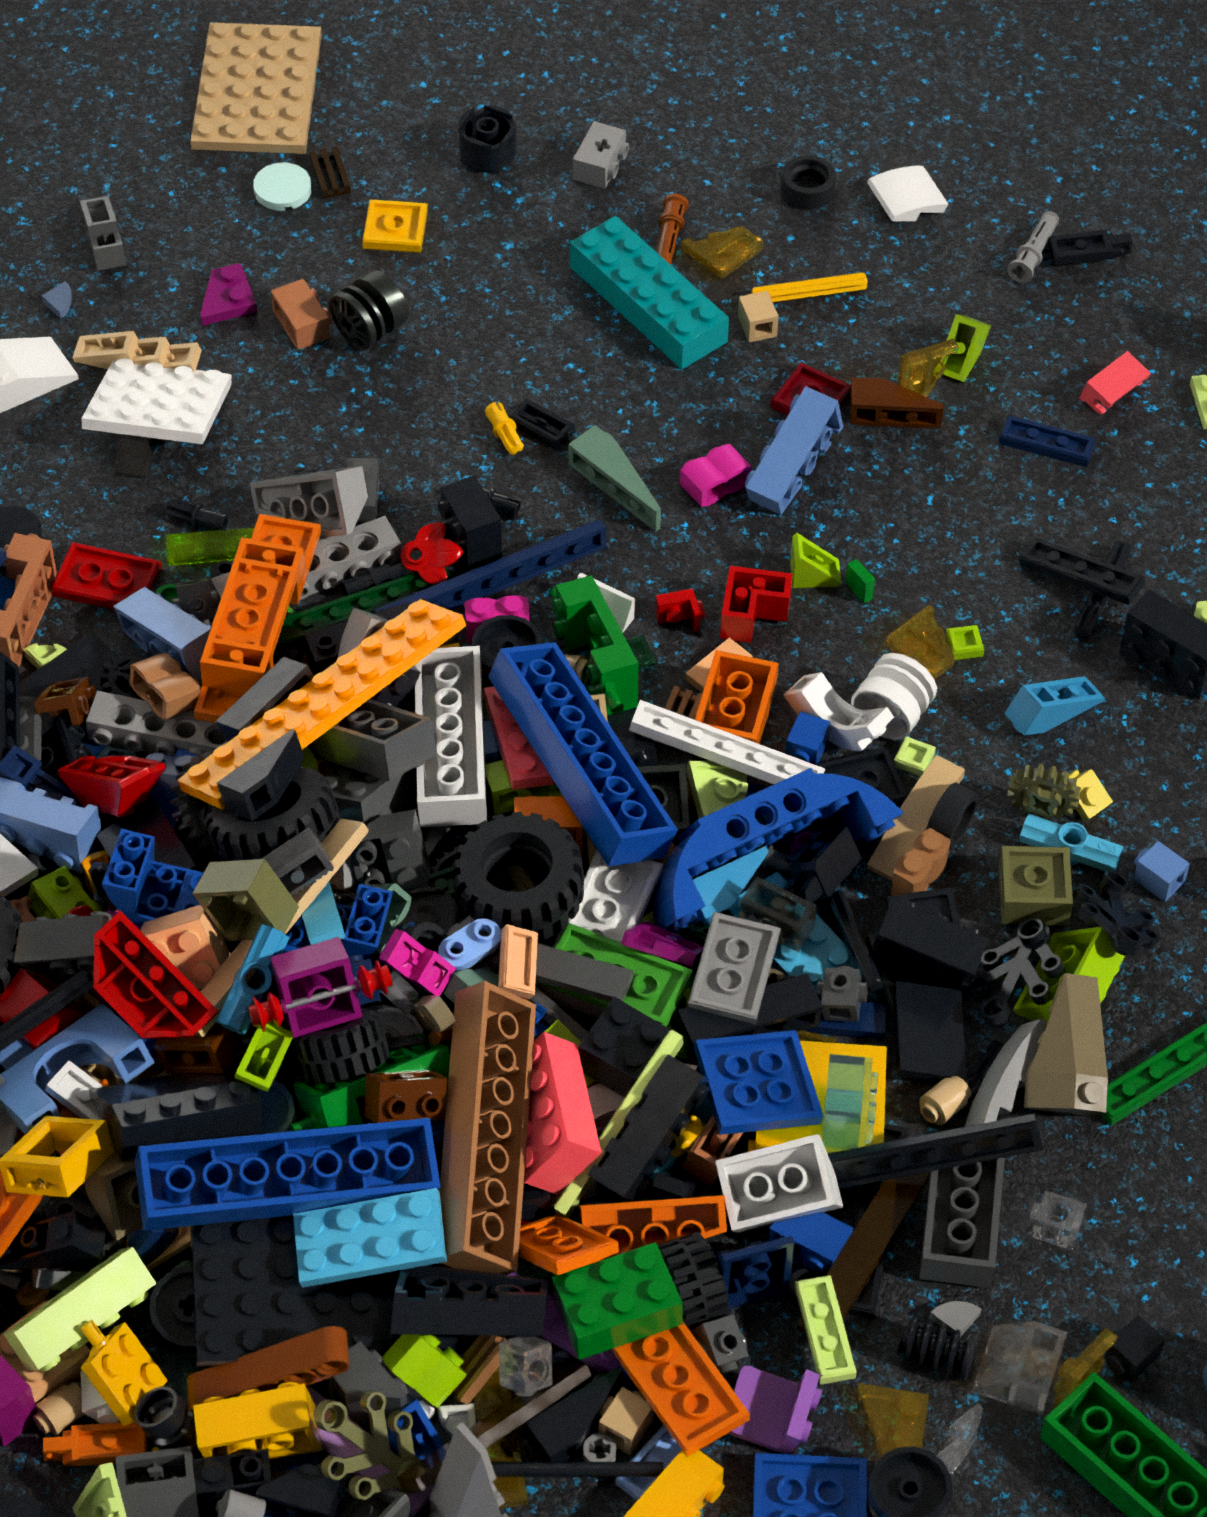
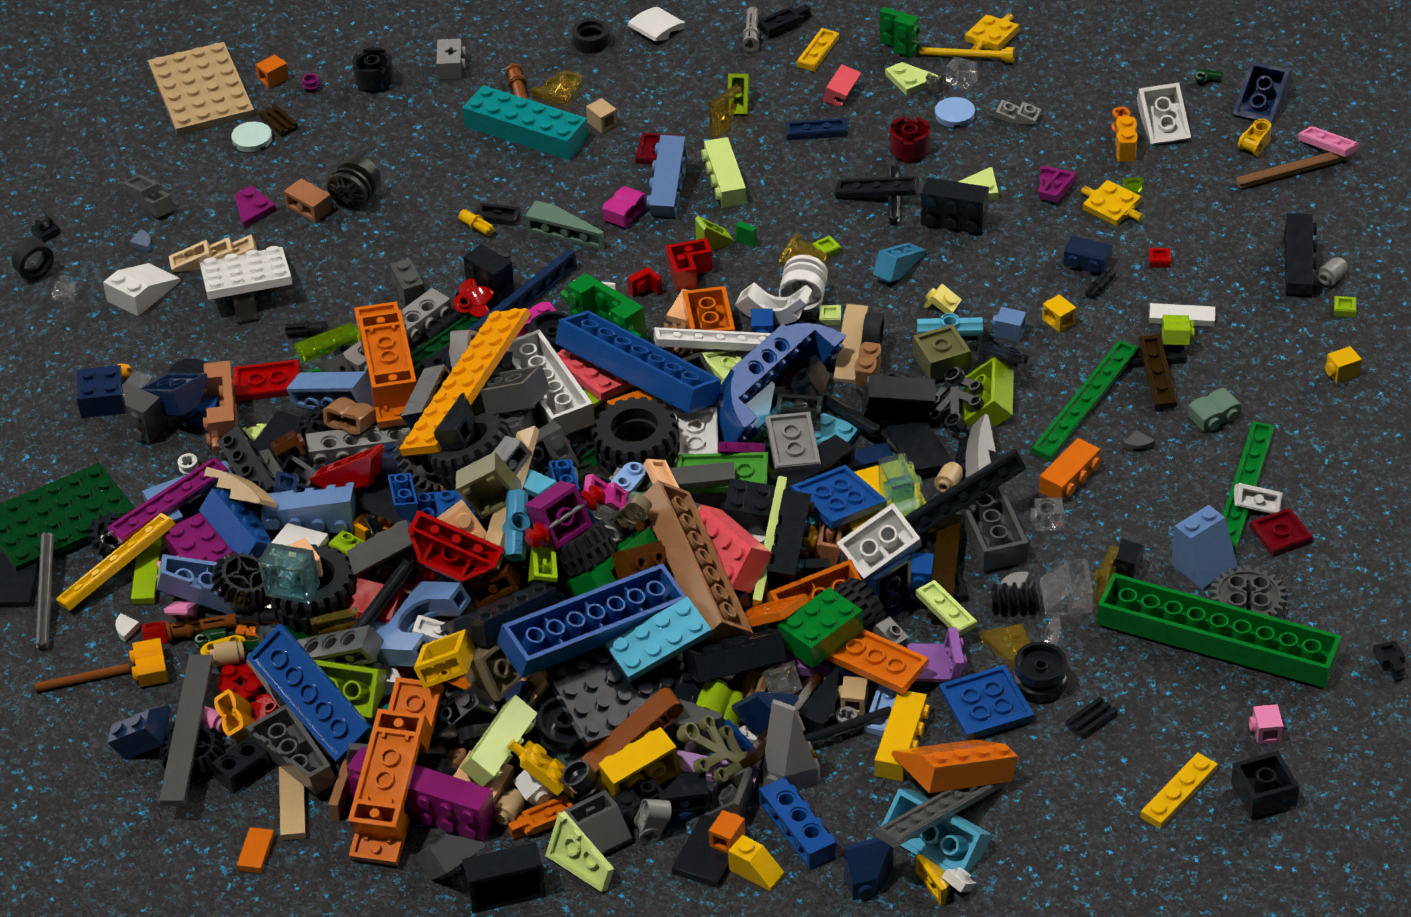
camera: 20 degrees left, 10 degrees down
(322, 498) = (391, 285): light grey wedge -> none
(358, 94) = (272, 71): none -> orange brick
(395, 226) = (338, 136): yellow tile -> none
(400, 128) = (310, 82): none -> magenta plate
(476, 1407) = (757, 707): none -> dark blue slope
(814, 287) = (629, 89): yellow axle -> none
(842, 994) = (862, 439): dark grey brick -> none
(880, 468) = (724, 172): none -> yellowish green brick
(888, 404) = (698, 133): reddish brown slope -> none
(1044, 792) = (920, 302): olive gear -> none
(1071, 1057) = (1012, 424): dark tan wedge -> none
(1113, 311) = (817, 49): none -> yellow tile
(1126, 1157) = (1070, 470): none -> orange brick
(1166, 507) = (909, 139): none -> dark red brick

